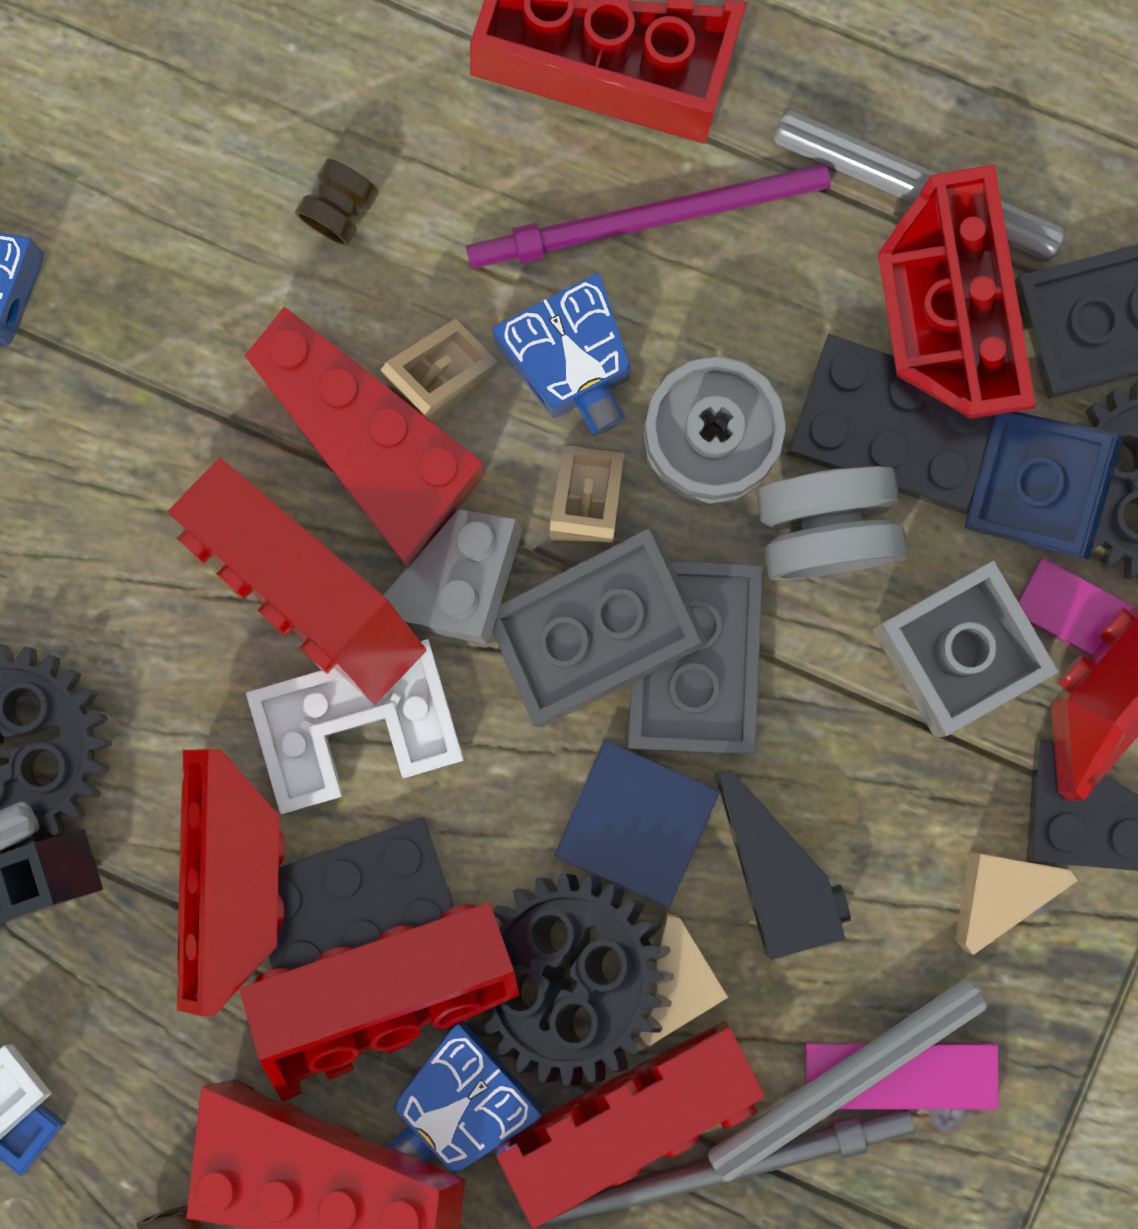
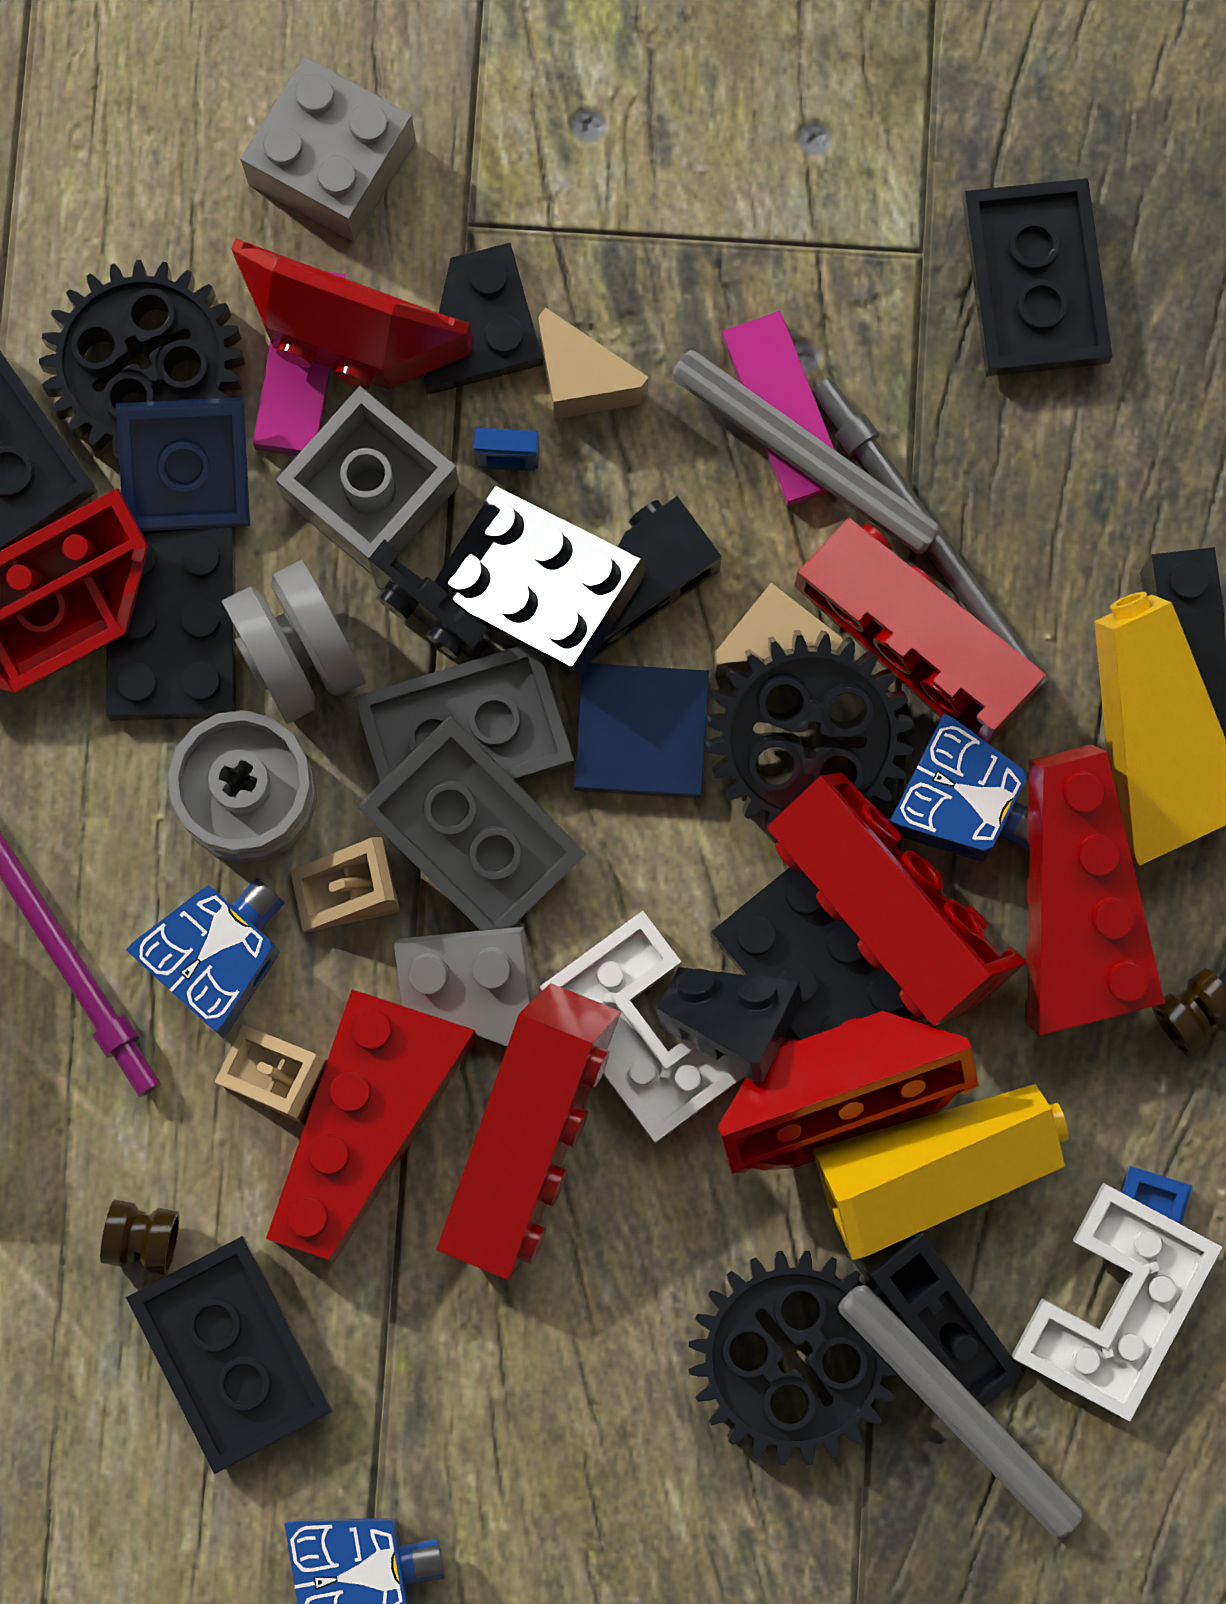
camera: 110 degrees left, 5 degrees down
(119, 944) = (938, 1166): none -> yellow slope
(203, 246) = (229, 1354): none -> black plate
(329, 804) = (731, 1015): none -> black wing
(810, 778) = (540, 579): none -> plate
(843, 649) = (406, 594): none -> black wing
(952, 794) = (506, 449): none -> blue tile

